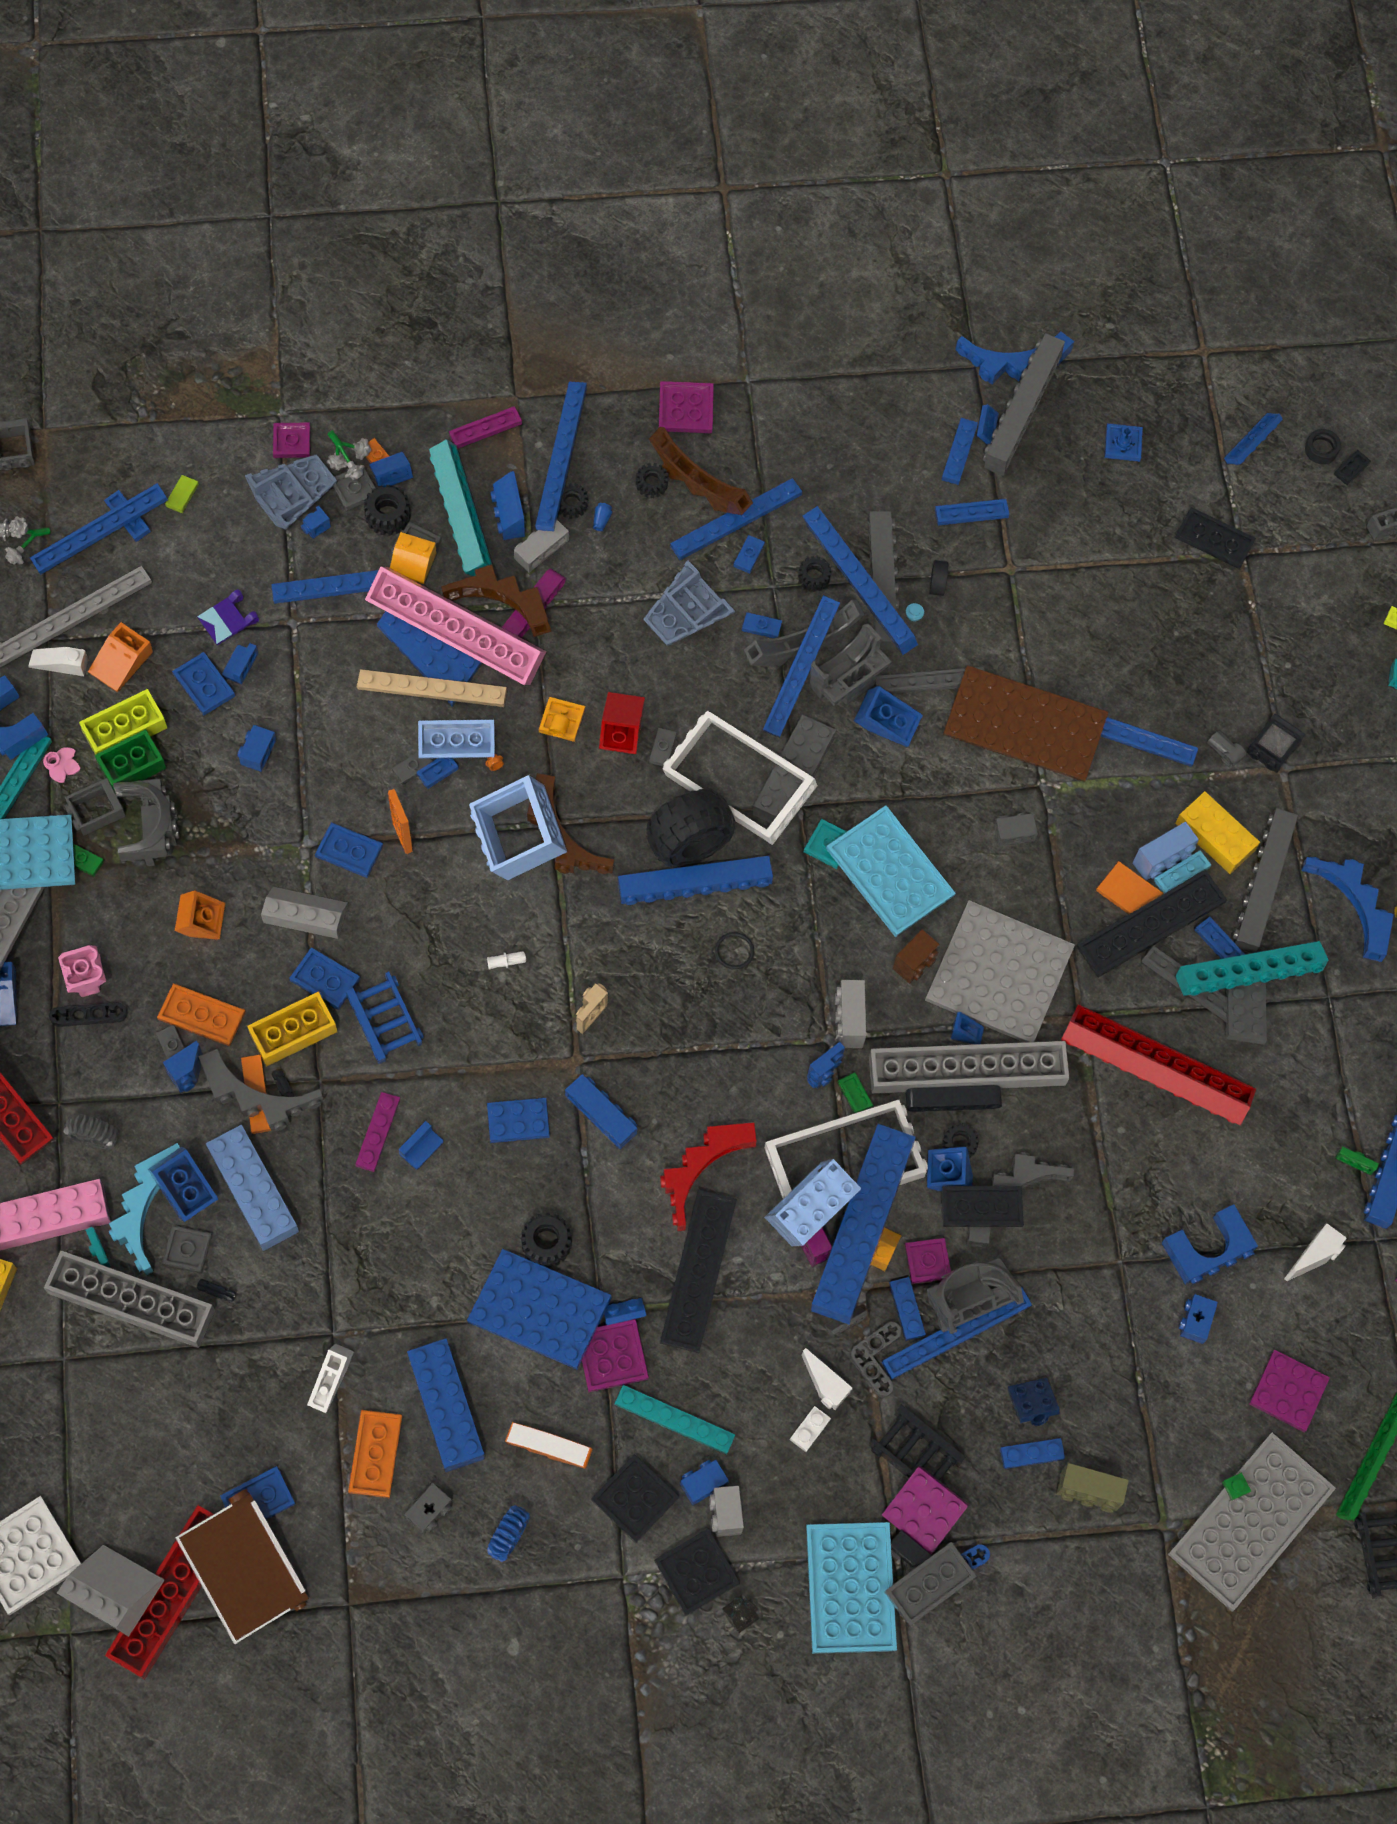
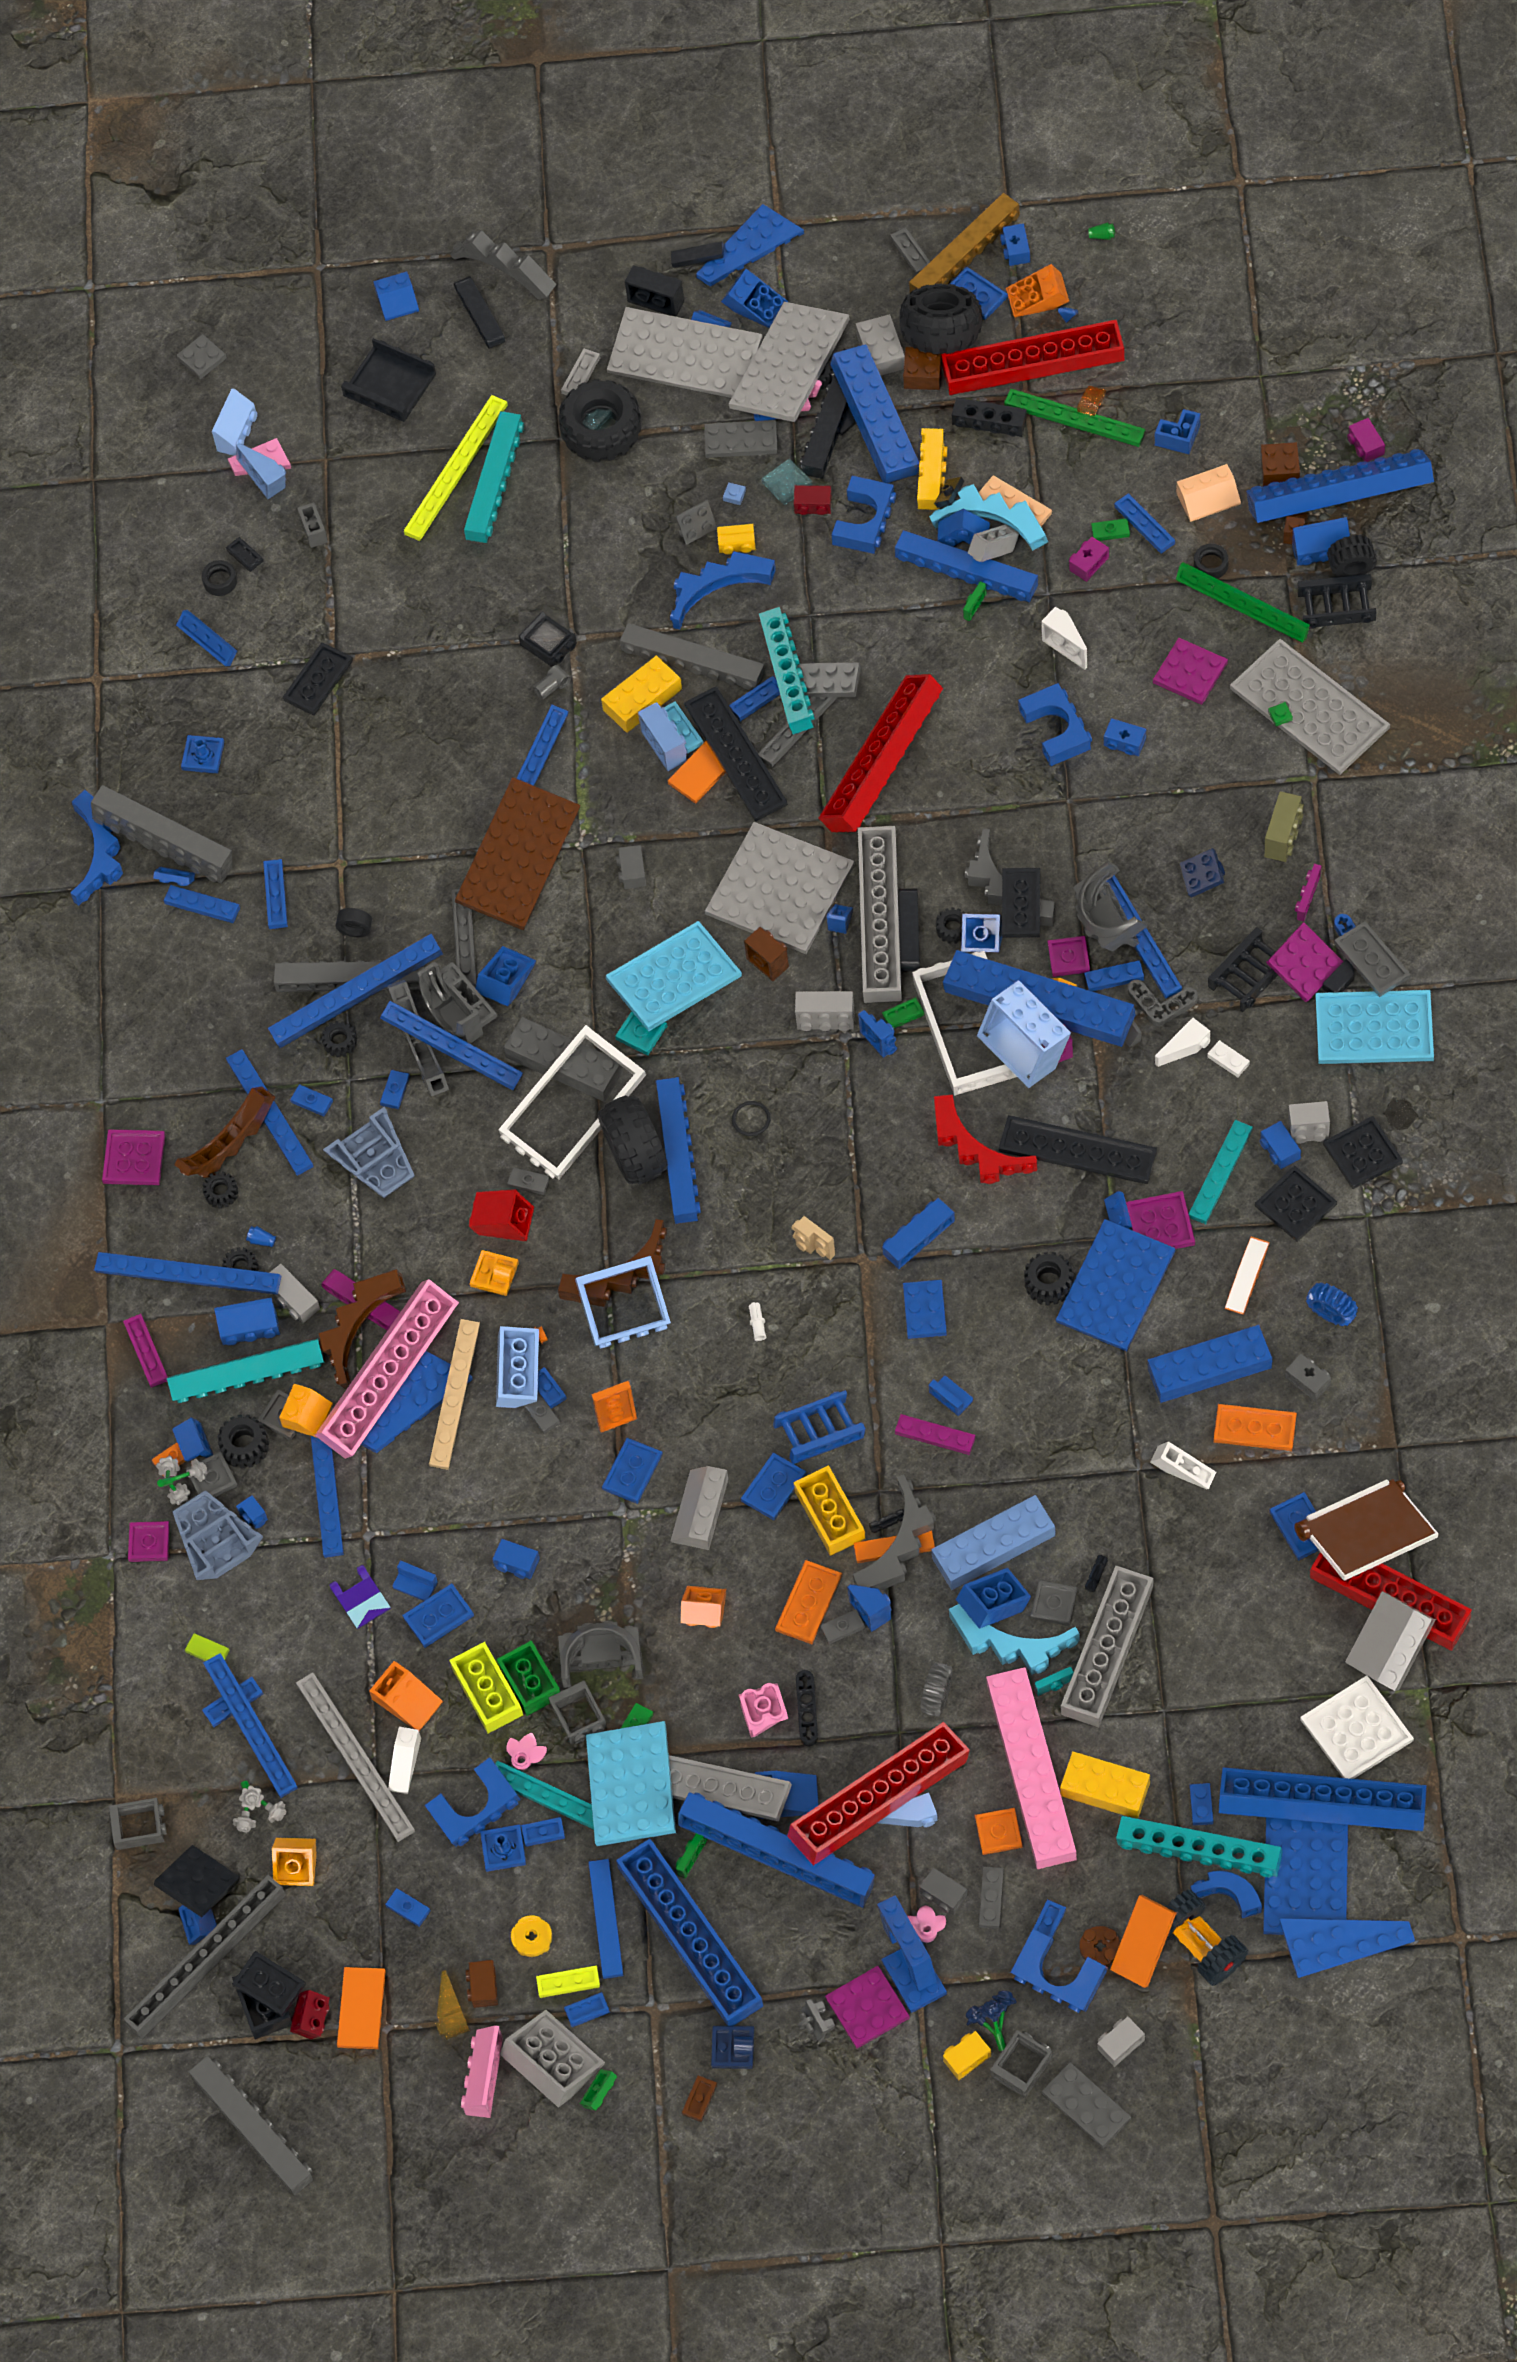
camera: 75 degrees left, 5 degrees down
(914, 612) = (387, 949): medium azure plate -> none
(1015, 1516) = (1308, 892): none -> magenta plate
(1032, 1453) = (1249, 878): blue plate -> none

